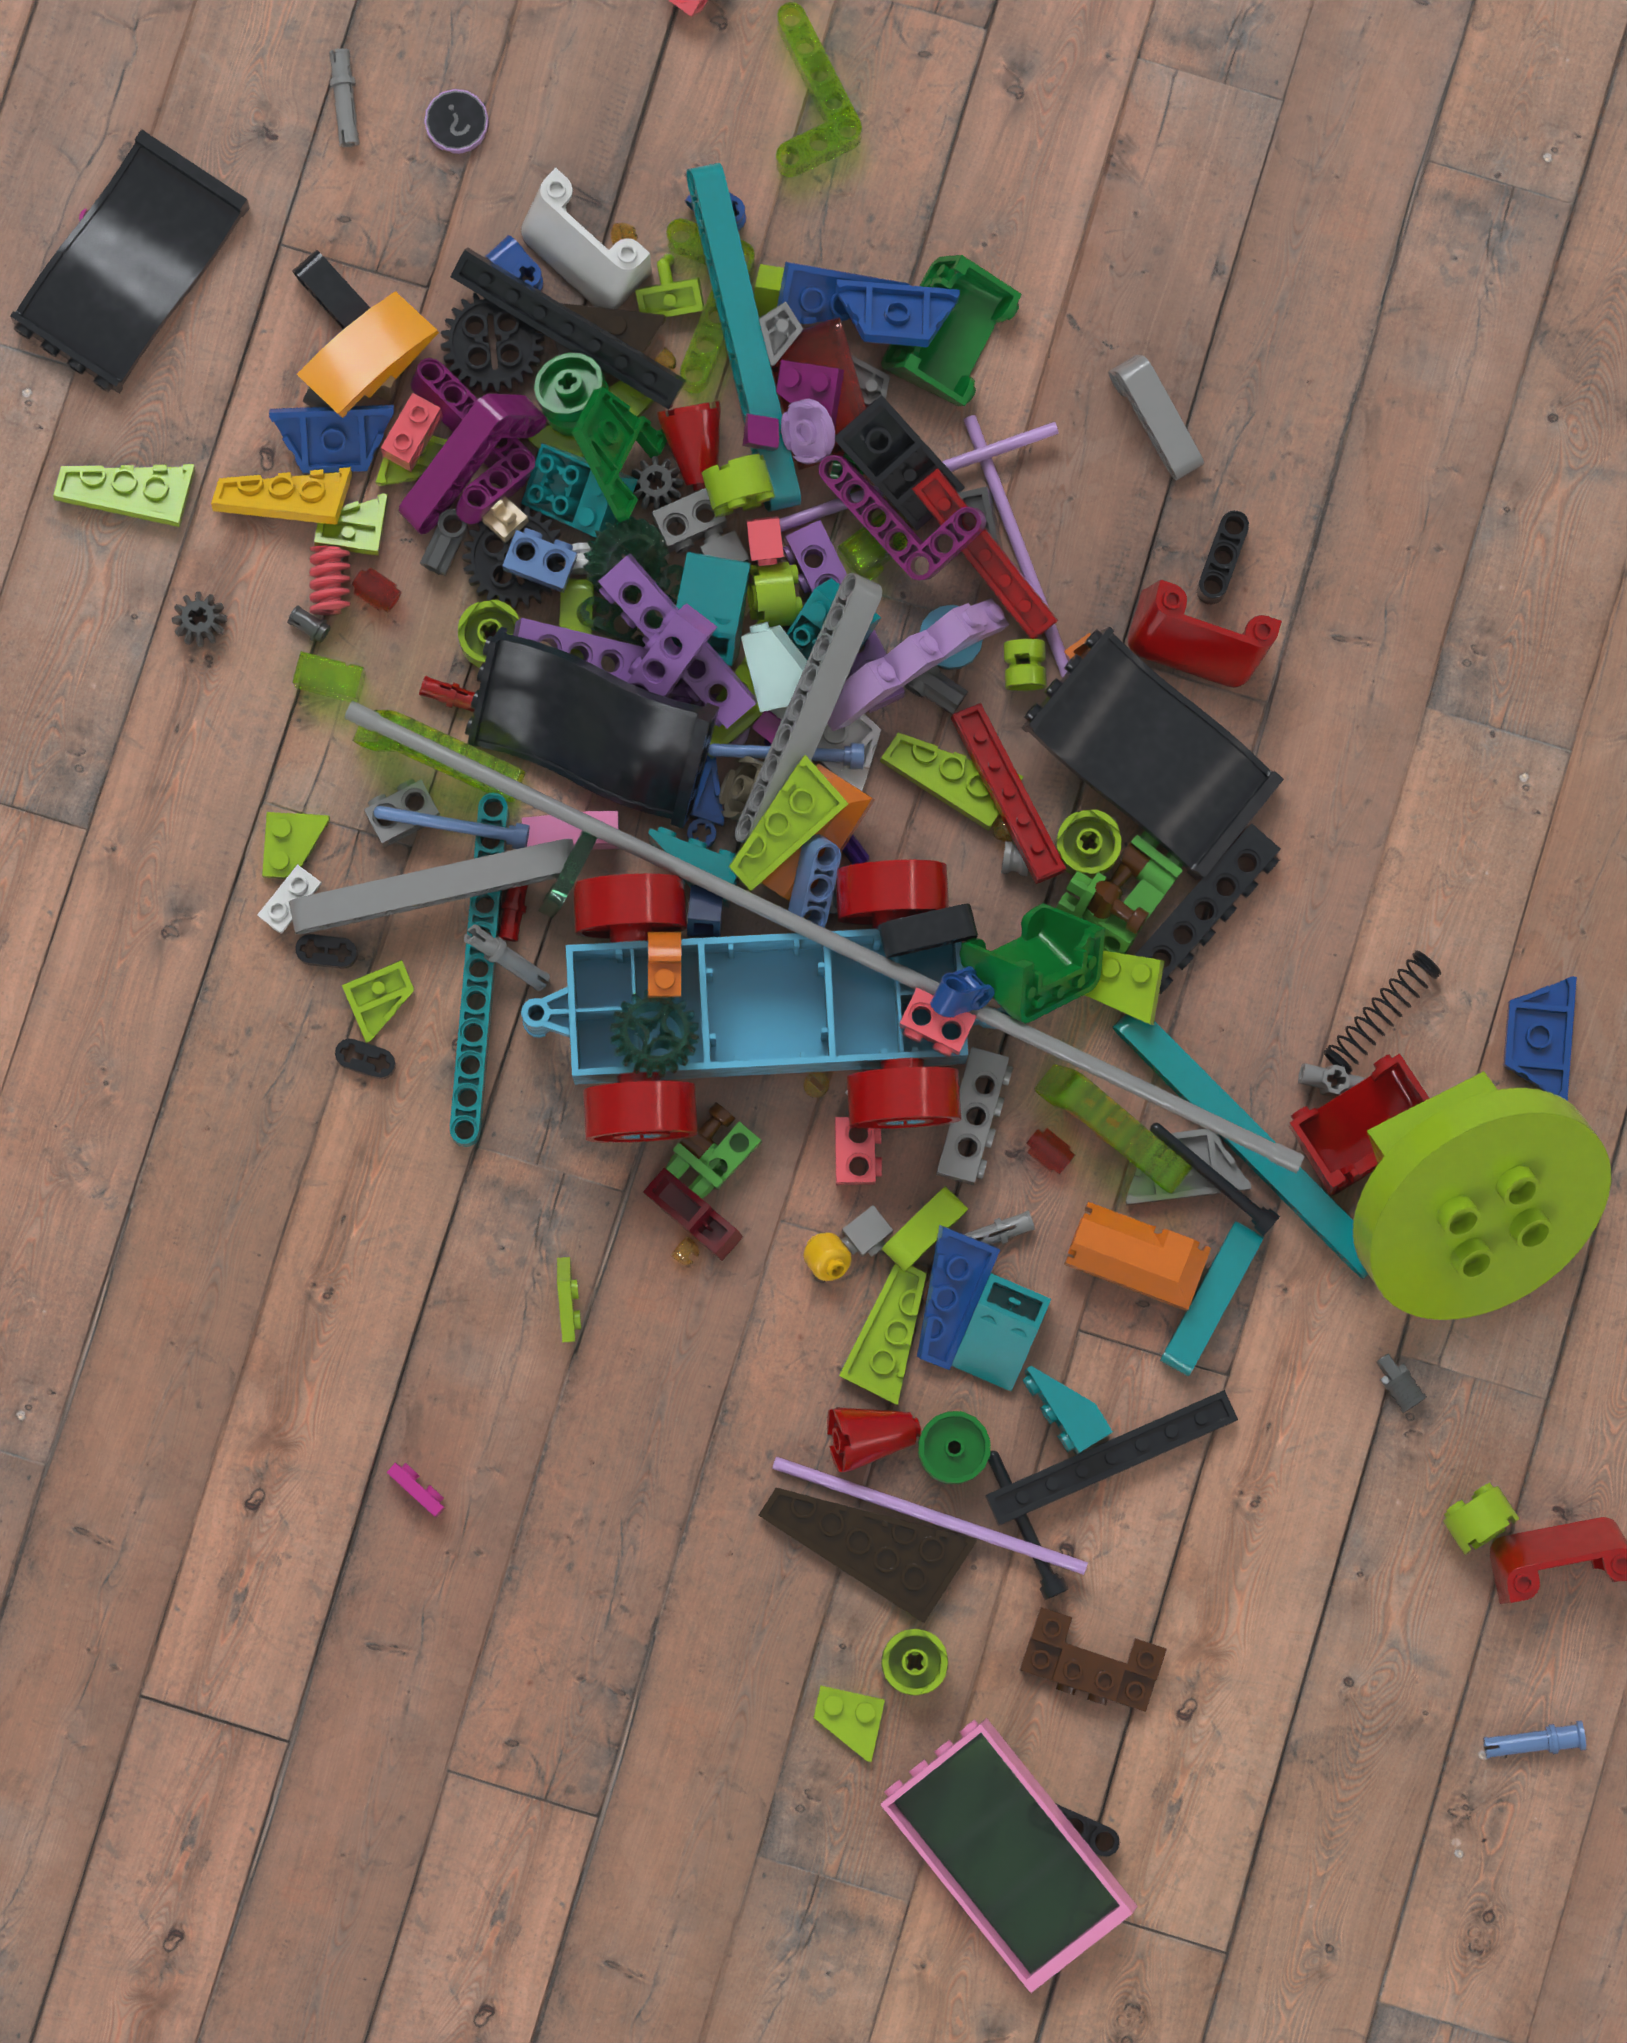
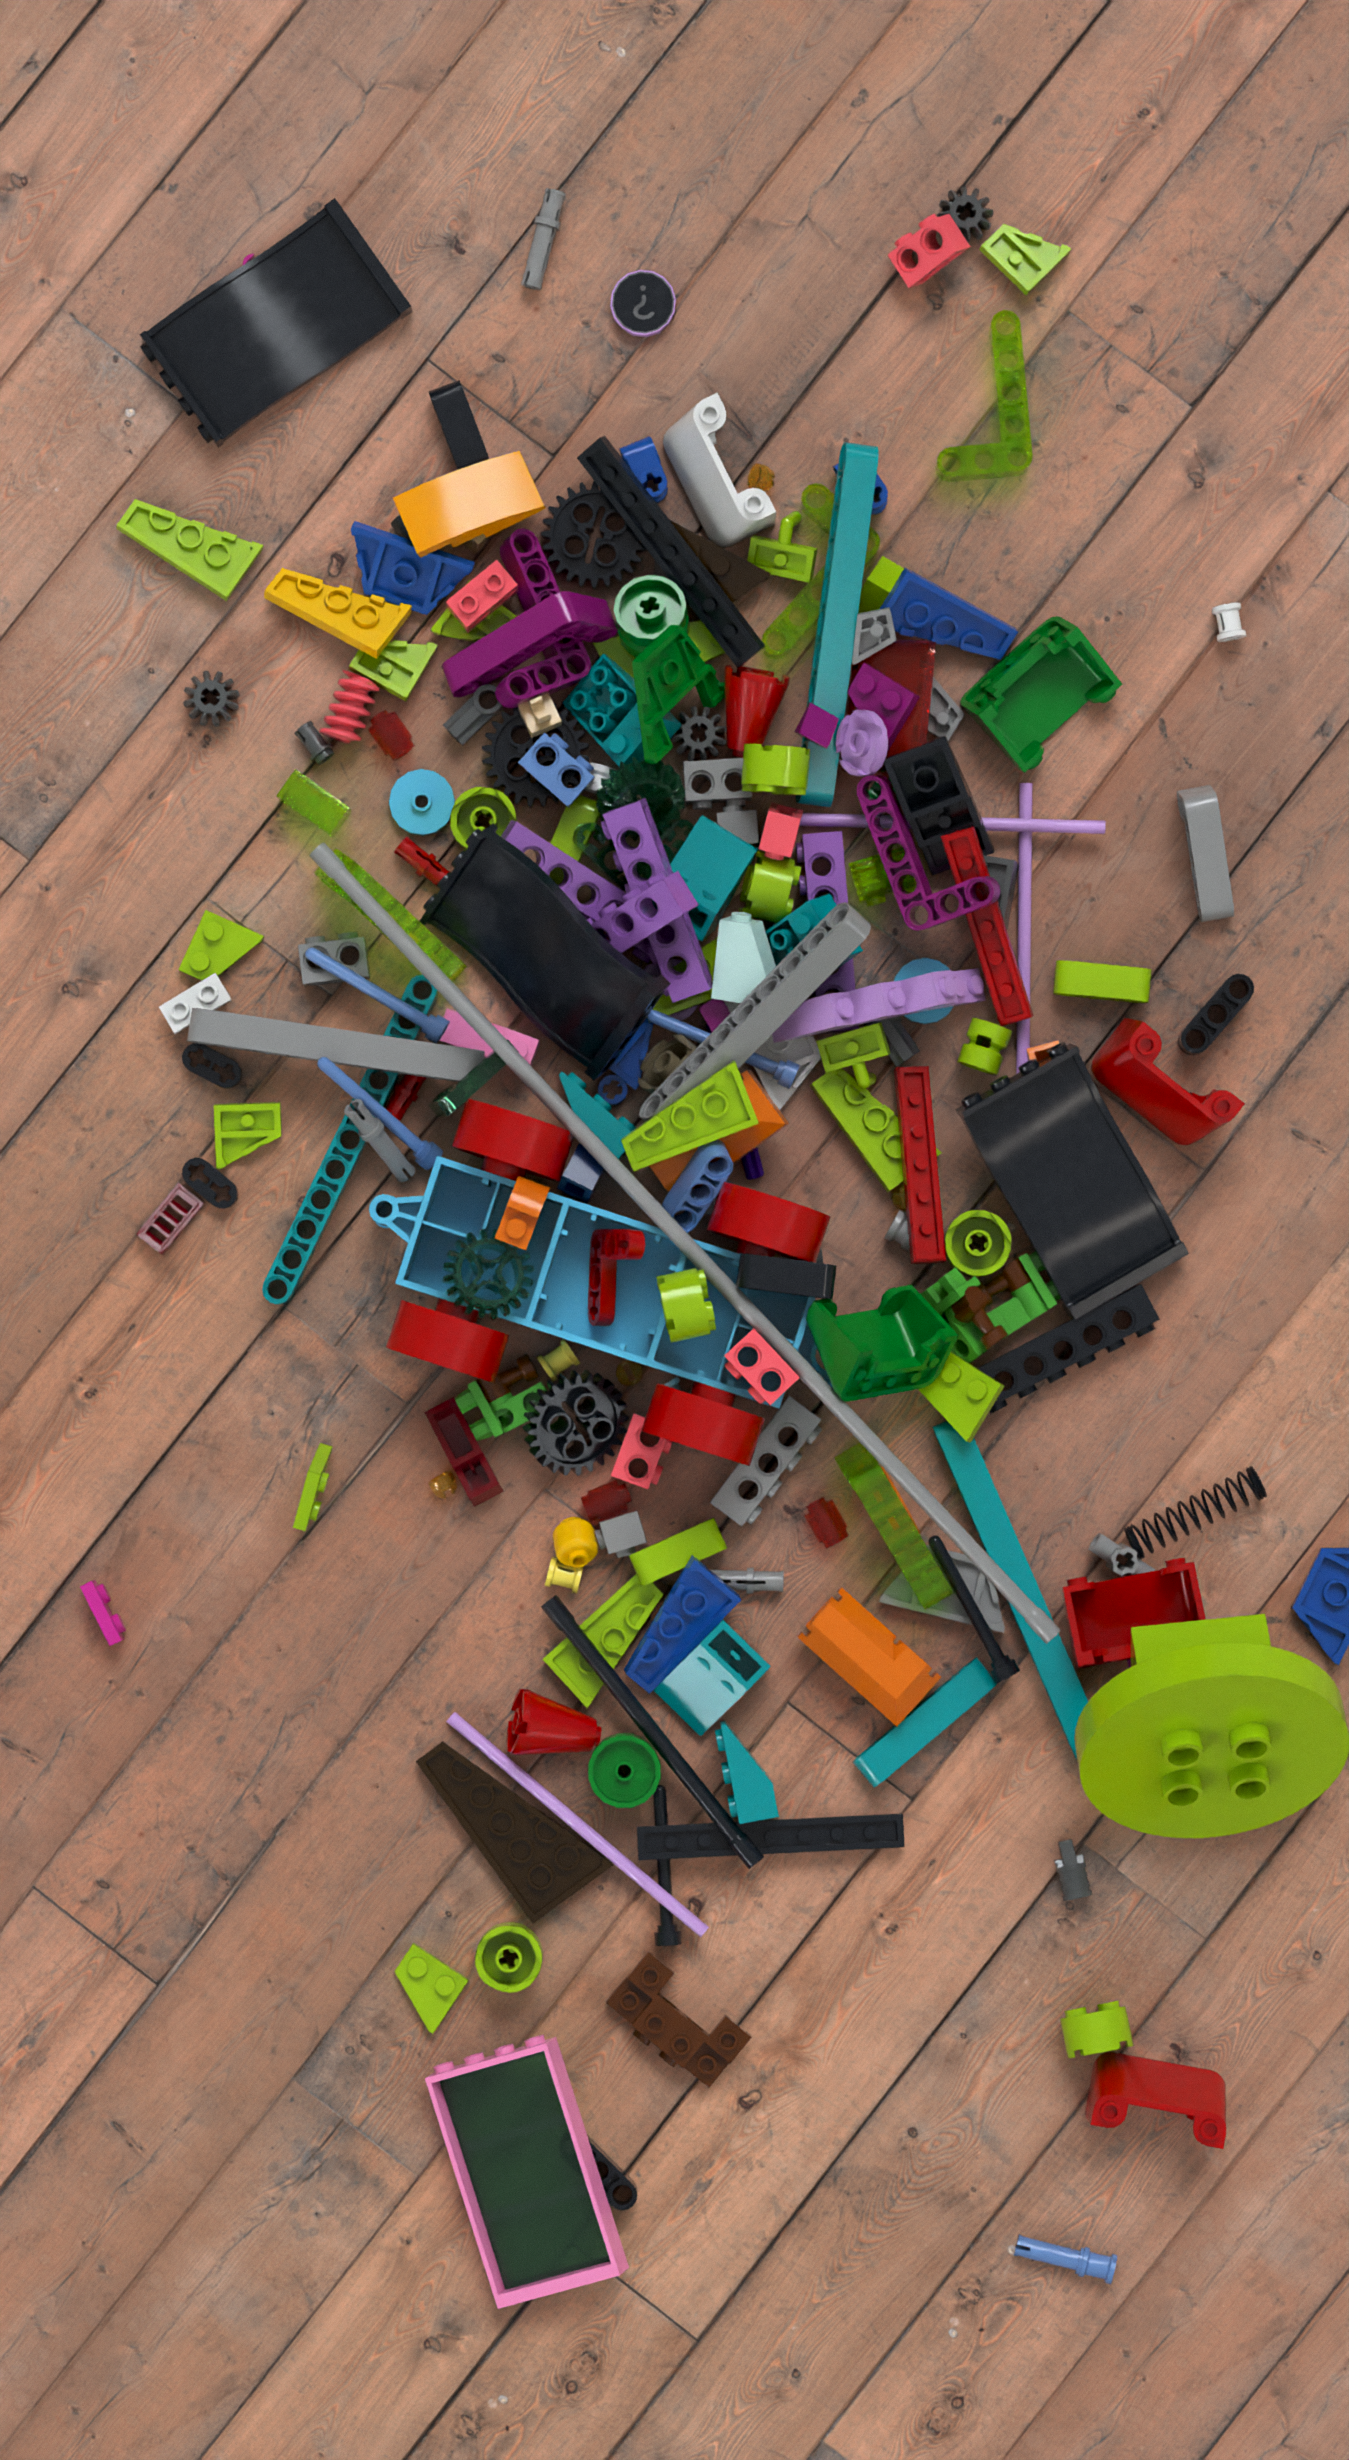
camera: 25 degrees right, 5 degrees up
(331, 1130) = (154, 1242): none -> slope
(429, 657) = (426, 819): none -> medium azure plate
(552, 954) = (423, 1150): none -> medium blue piece
(666, 359) = (754, 616): clear yellow hinge -> none
(747, 1097) = (558, 1360): none -> light yellow bush
(751, 976) = (605, 1250): none -> red beam
(802, 1121) = (550, 1441): none -> black gear
(828, 1291) = (563, 1575): none -> light yellow bush
(841, 1208) = (606, 1501): none -> clear red brick
(846, 989) = (684, 1304): none -> lime brick
(896, 311) = (992, 657): blue wing -> none
(907, 711) = (854, 1049): none -> lime plate
(961, 993) = (792, 1350): blue piece -> none
(1083, 1470) = (738, 1840): none -> black piece
(1095, 205) = (1228, 622): none -> white bush
(1108, 567) = (1102, 981): none -> lime beam

